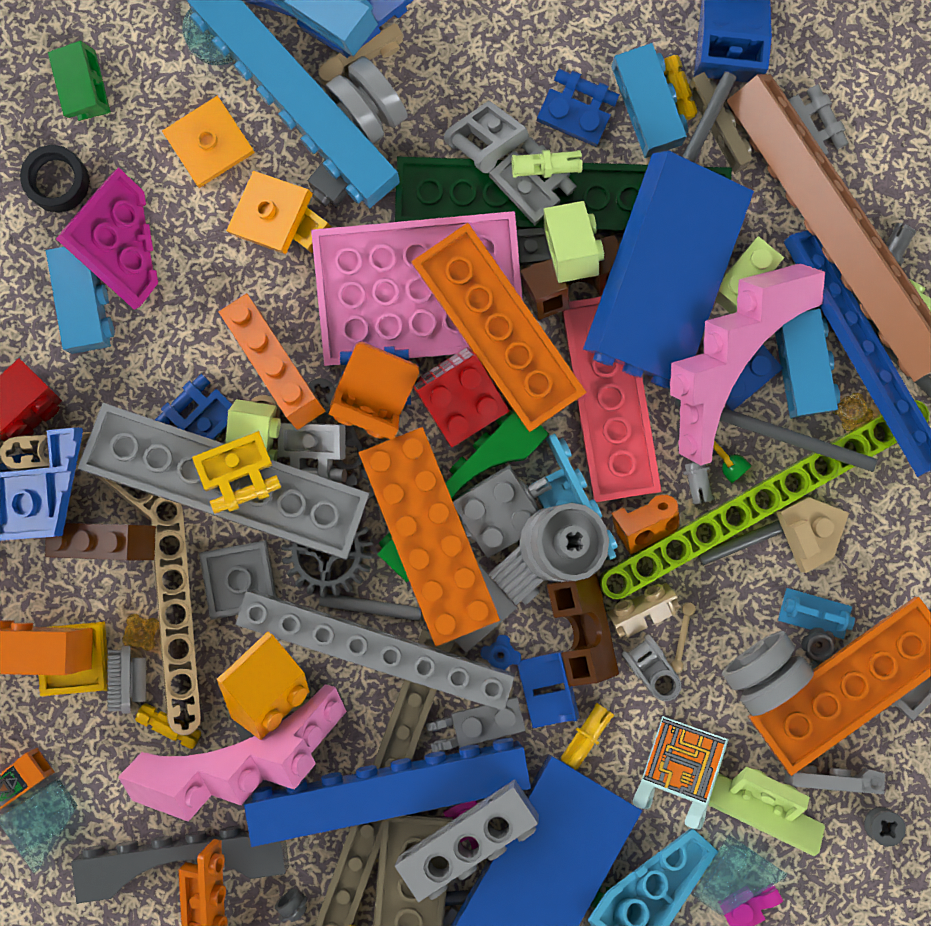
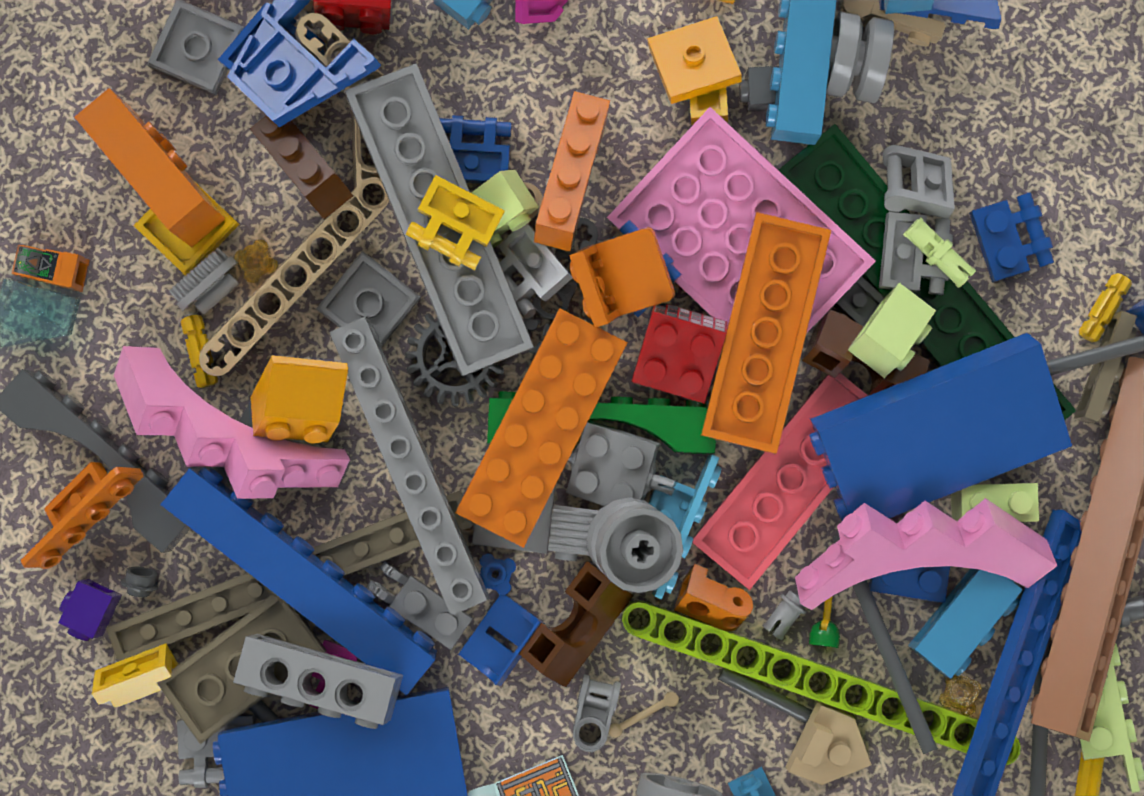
camera: 50 degrees right, 0 degrees up
(371, 607) = (441, 432): light grey bar -> none
(586, 736) = (490, 705): yellow axle -> none
(649, 99) = (1072, 291): dark azure brick -> none
(657, 602) = (654, 665): tan hinge -> none

